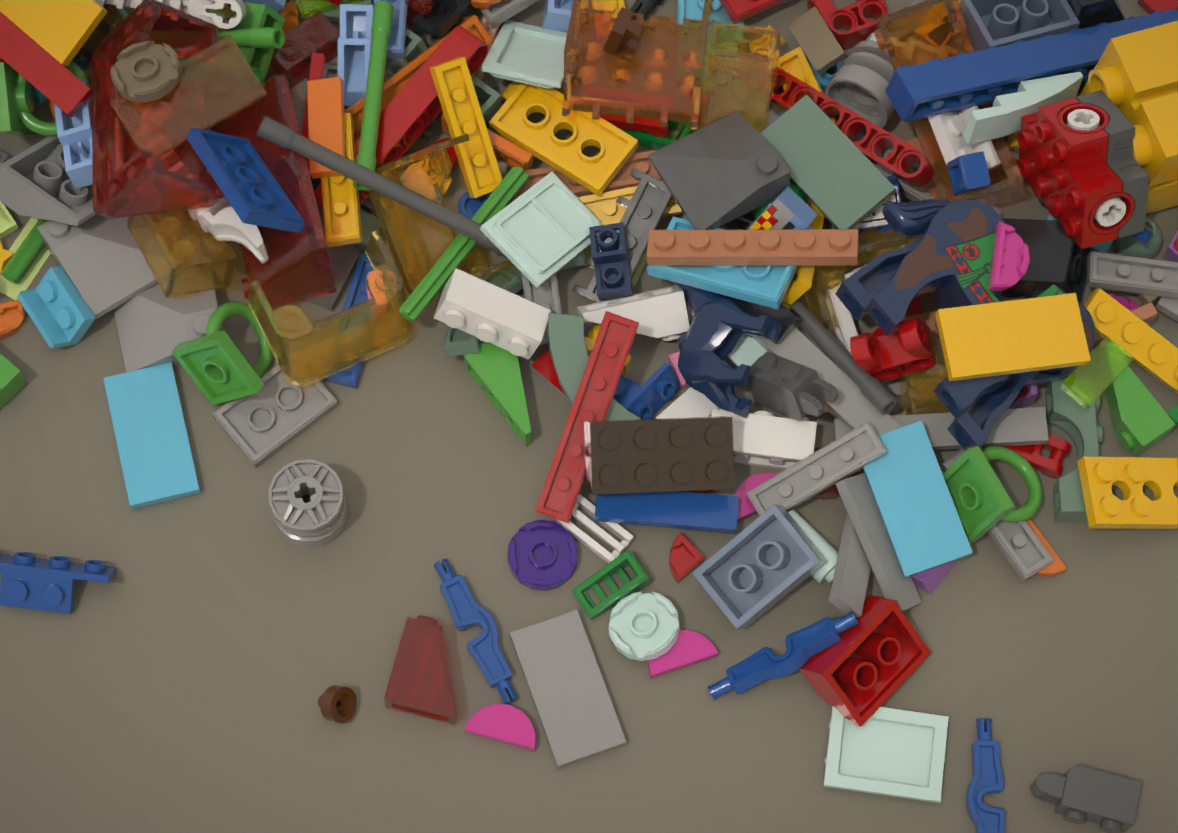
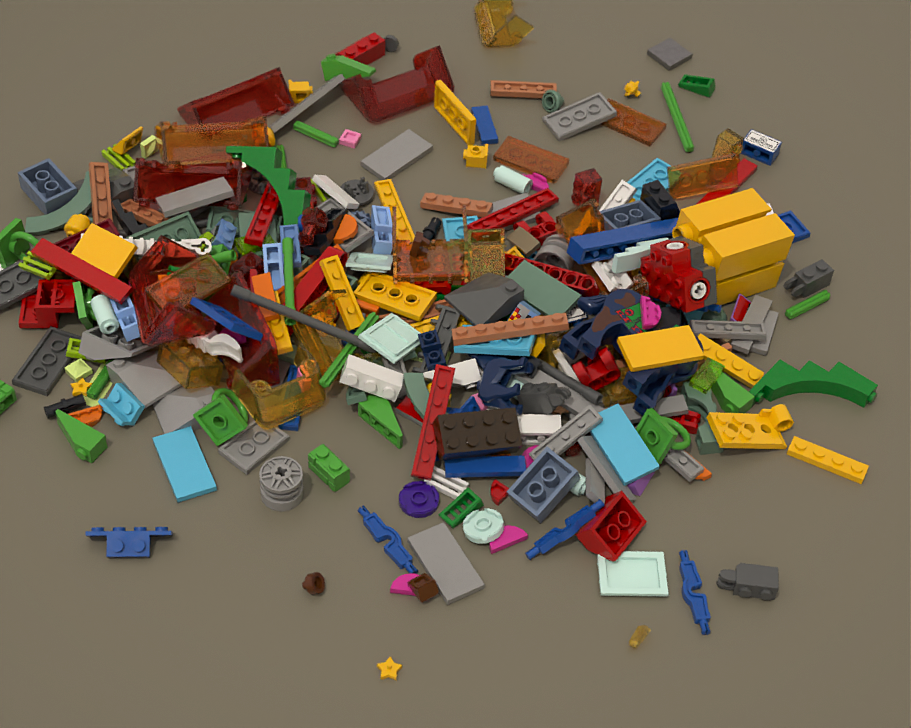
camera: 10 degrees left, 20 degrees down
(41, 131) = (104, 314): none -> light aqua brick
(146, 71) = (163, 271): dark tan tile -> none
(395, 478) = (329, 467): none -> bright green brick
(421, 673) = (361, 563): clear red slope -> none
(520, 736) = (423, 587): none -> reddish brown slope
(968, 173) = (618, 281): blue slope -> none

